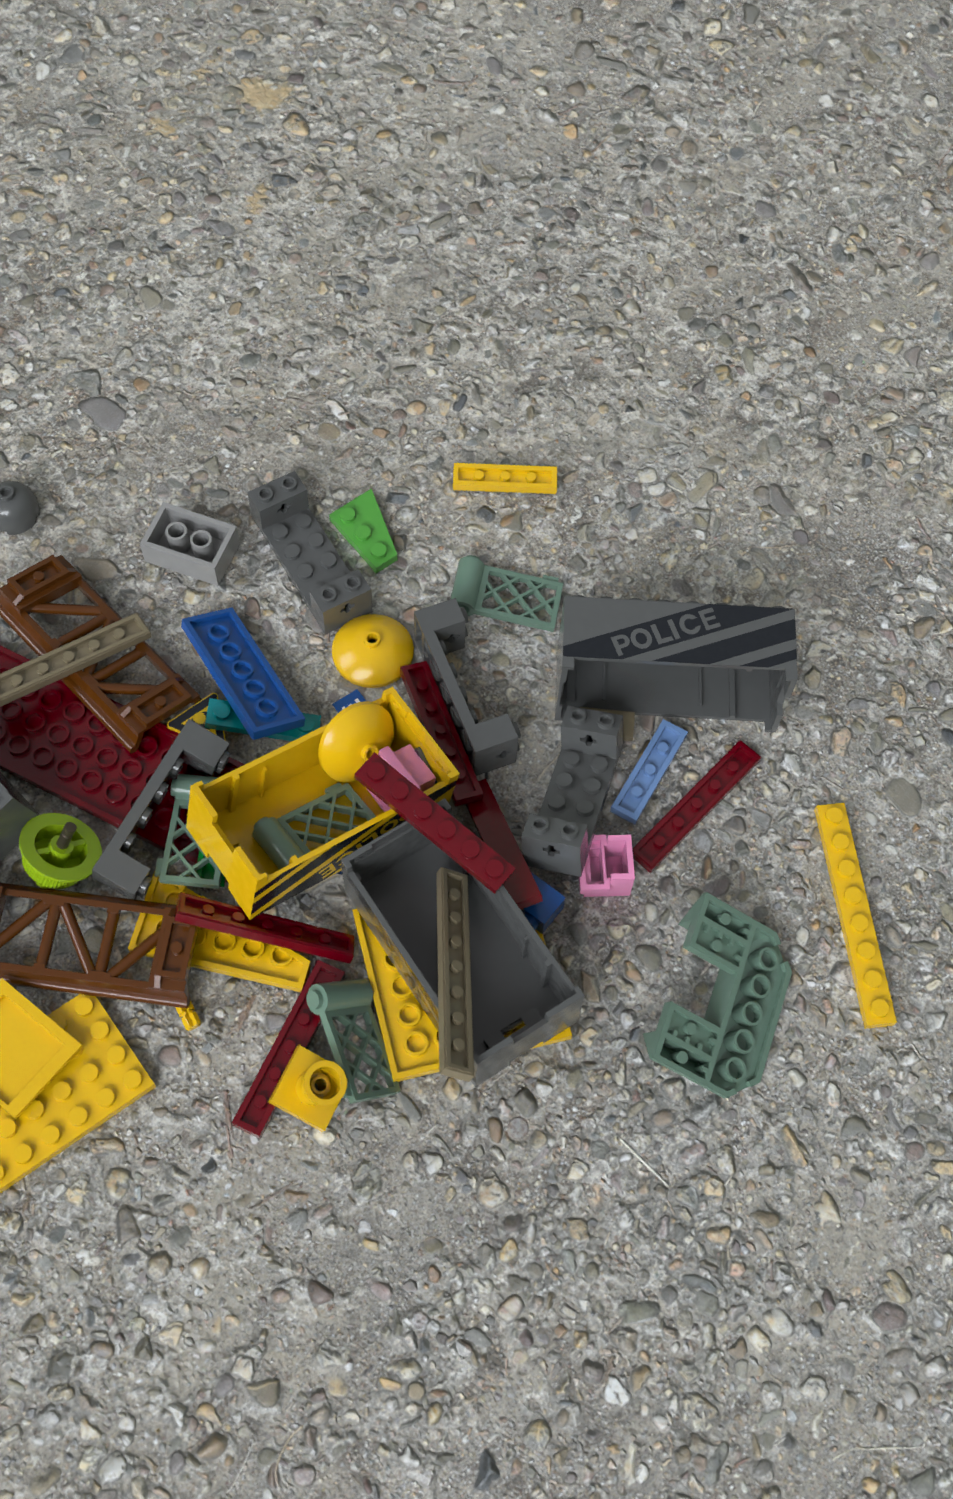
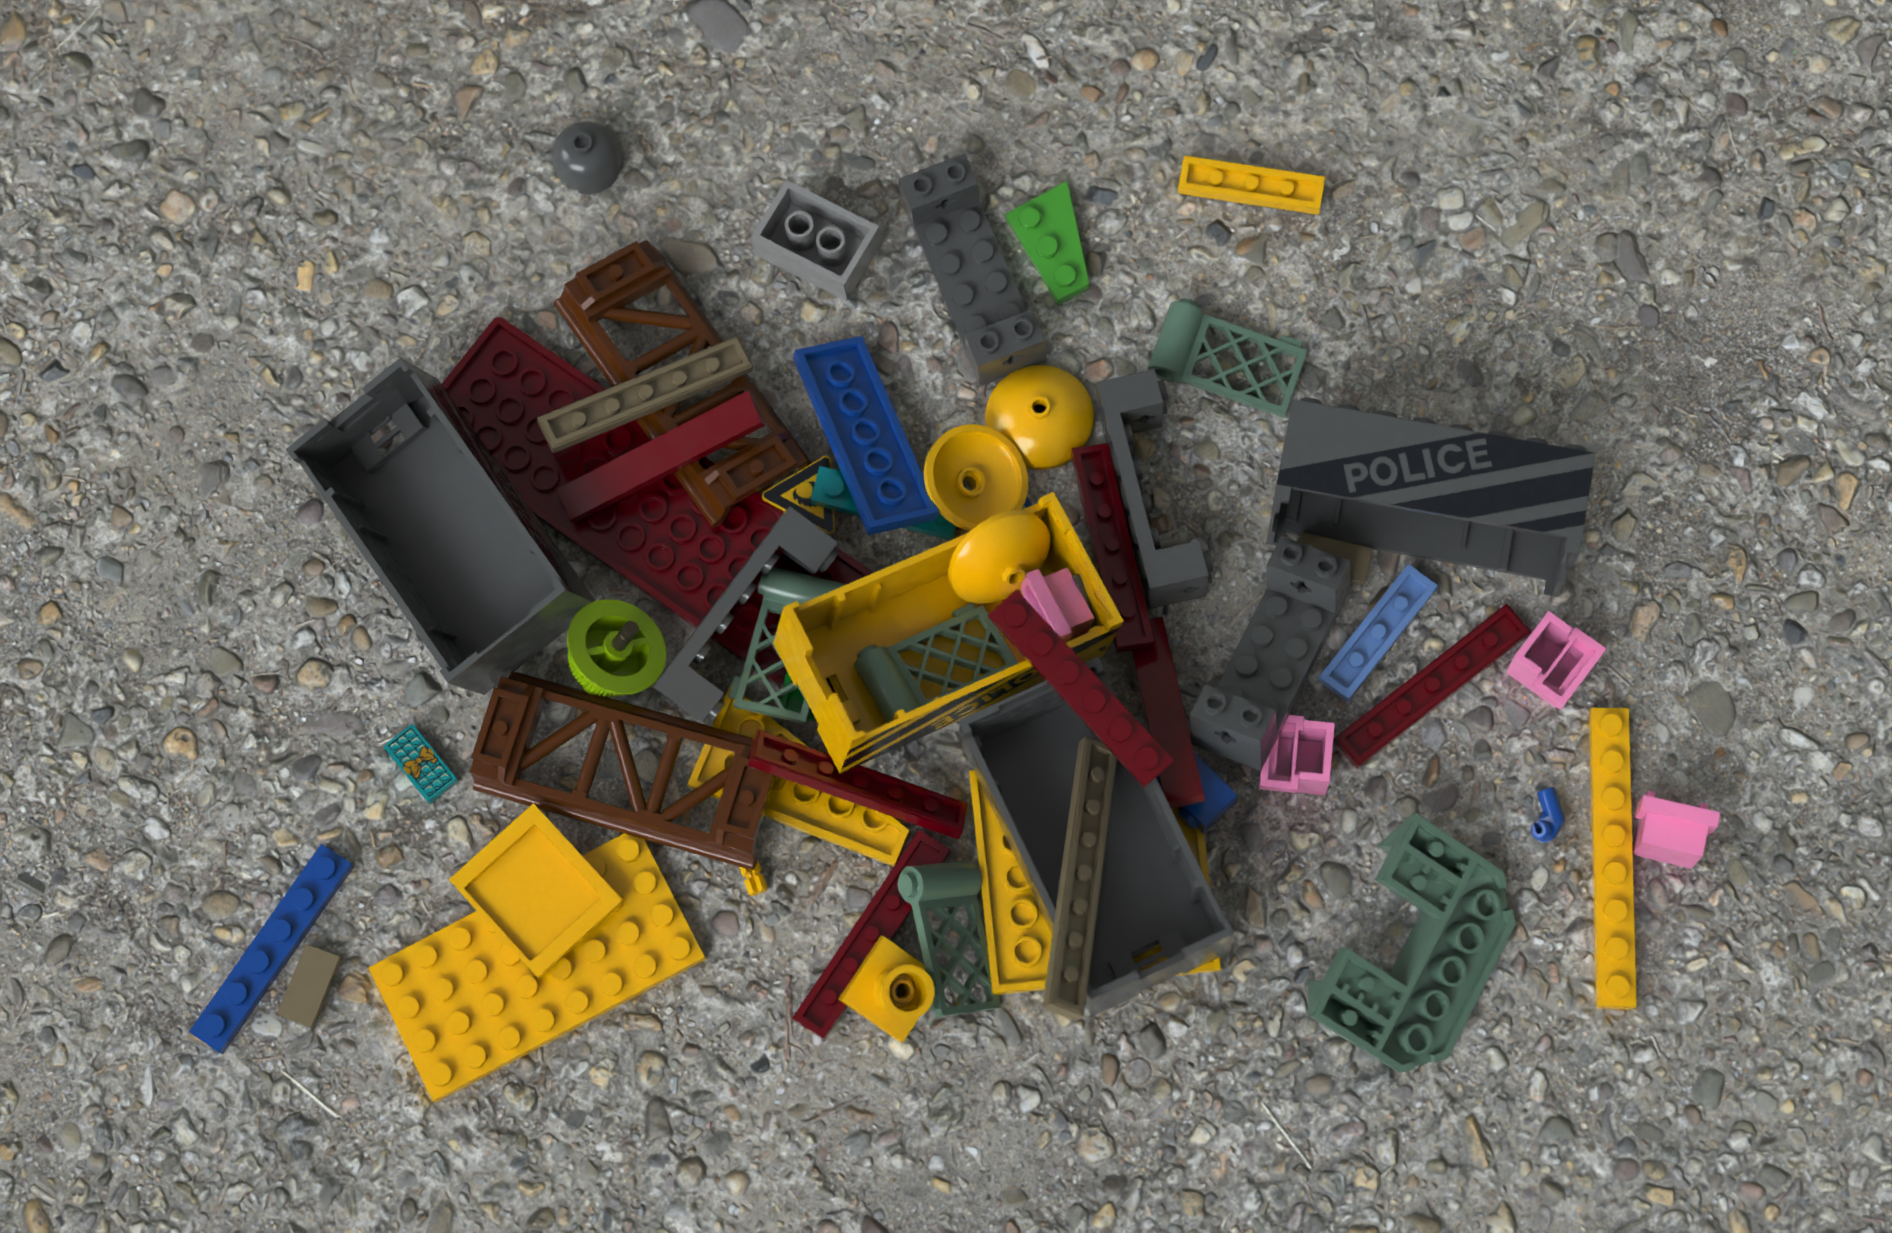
camera: 20 degrees right, 10 degrees up
(84, 702) = (661, 456): none -> dark red tile
(326, 680) = (985, 461): none -> yellow dish
(784, 773) = (1555, 660): none -> bright pink plate
(803, 891) = (1551, 818): none -> blue arm
(897, 884) = (1672, 830): none -> bright pink plate

